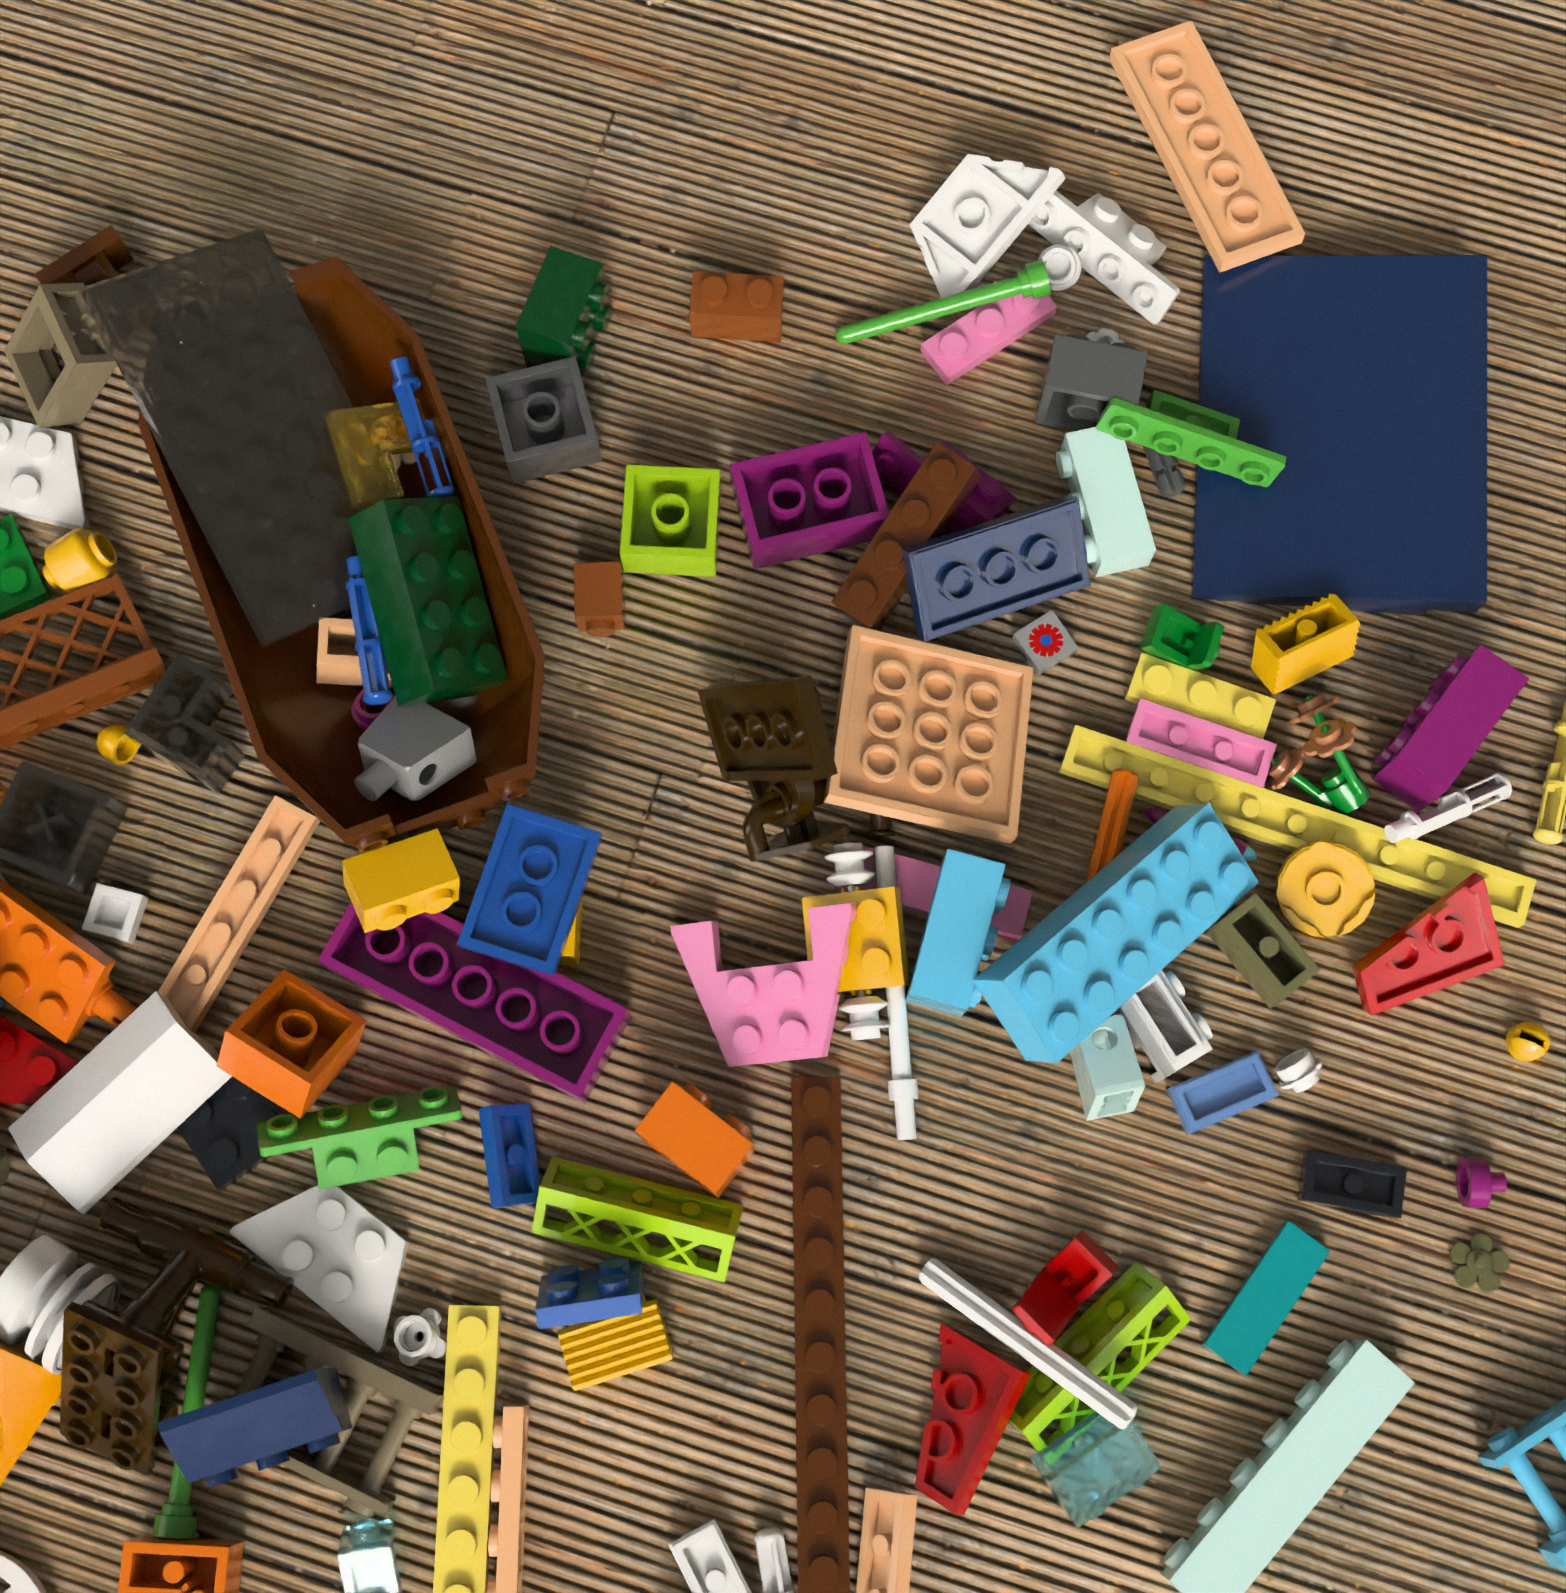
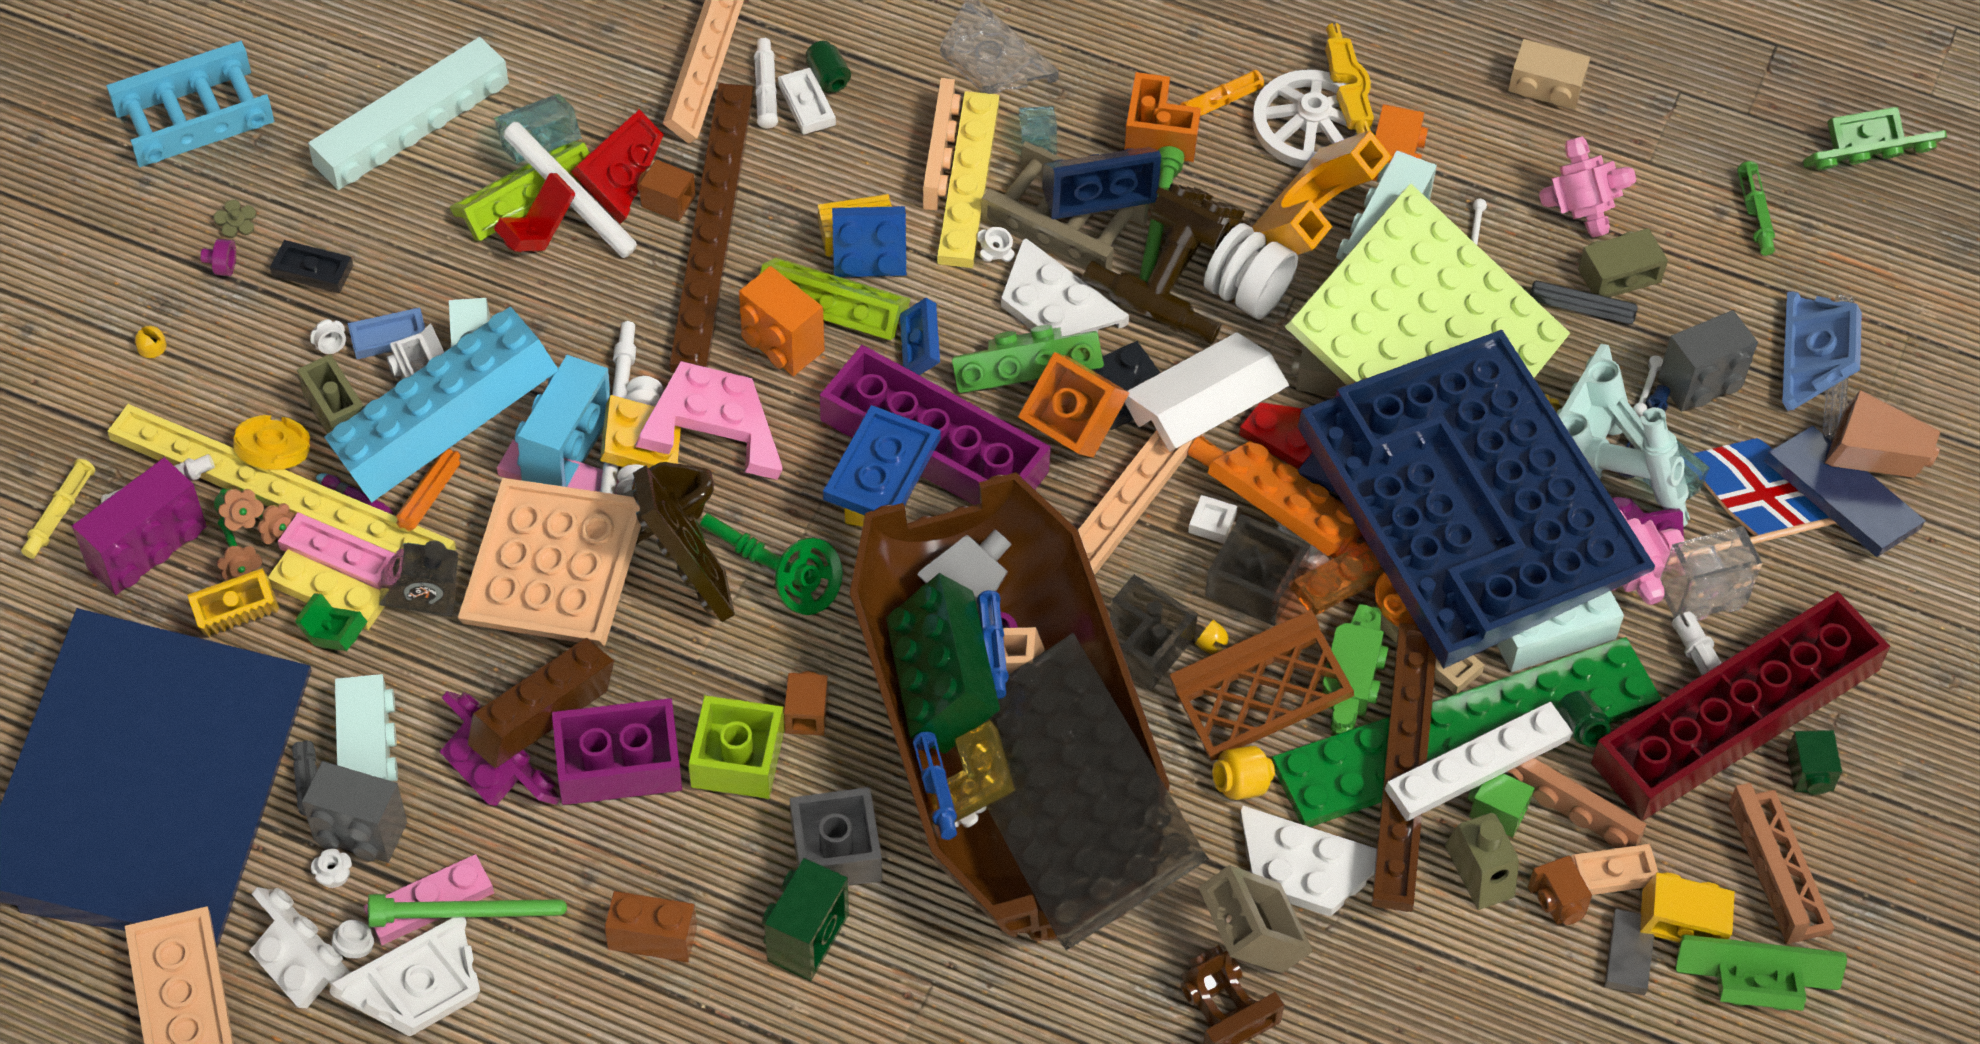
camera: 175 degrees left, 20 degrees down
(401, 881) = (961, 472): yellow brick -> none
(627, 768) = (788, 572): none -> green dish
(894, 1376) = (666, 190): none -> dark orange brick
(996, 567) = (469, 674): dark blue tile -> none
(1045, 642) = (443, 642): light grey tile -> none
(1085, 691) = (420, 579): none -> clear smoke torso
(1191, 434) = (274, 764): bright green bracket -> none
(1265, 1298) = (393, 213): teal tile -> none
(1433, 951) = (202, 393): wing -> none

